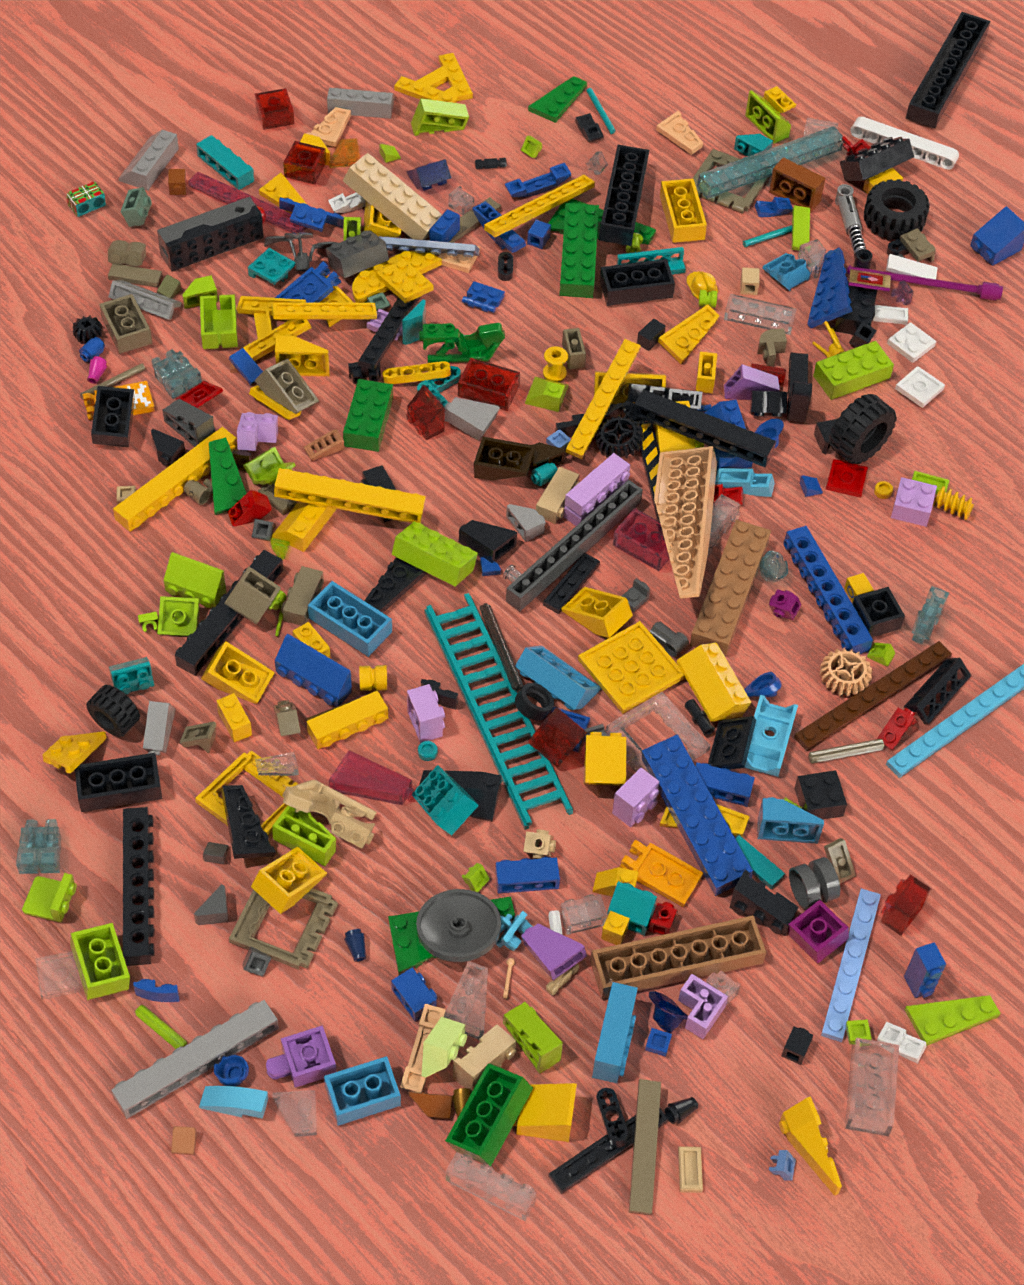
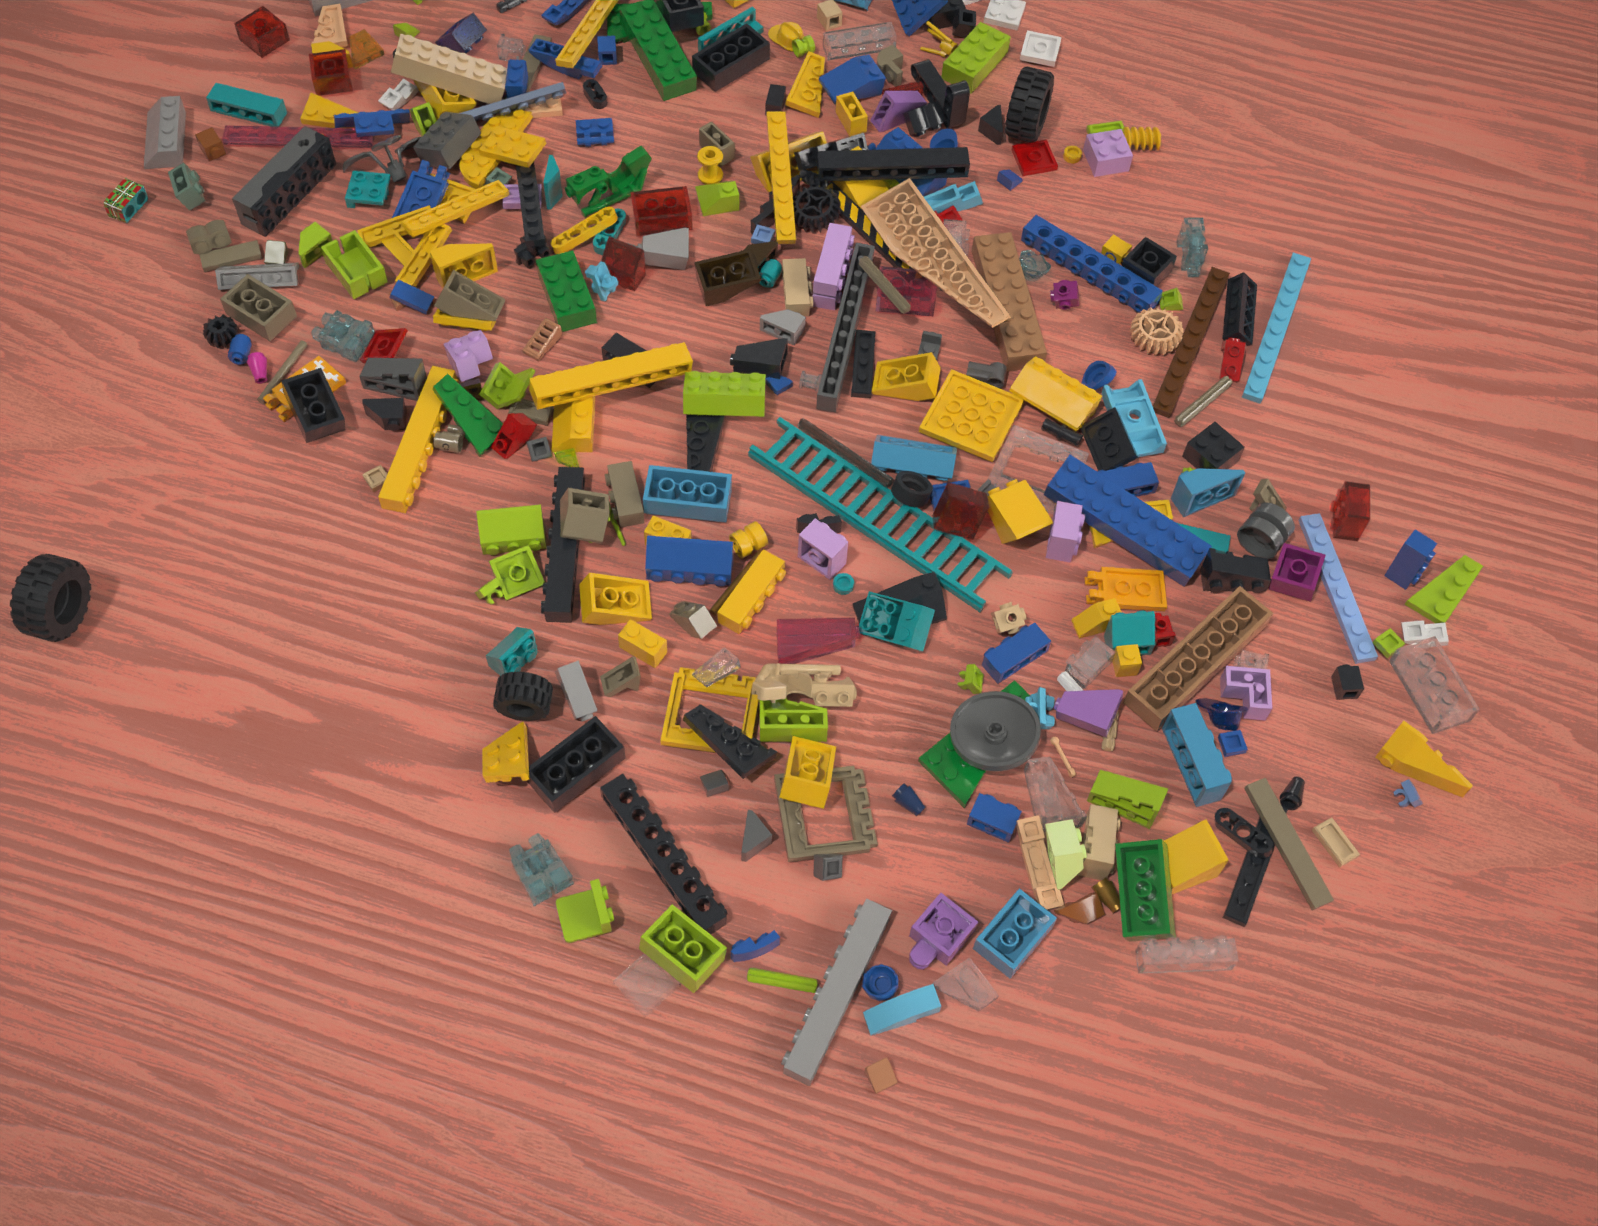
camera: 30 degrees left, 5 degrees up
(400, 418) = (603, 282): none -> medium azure hips
(625, 524) = (884, 284): none -> dark tan axle
(732, 344) = (857, 76): none -> blue slope

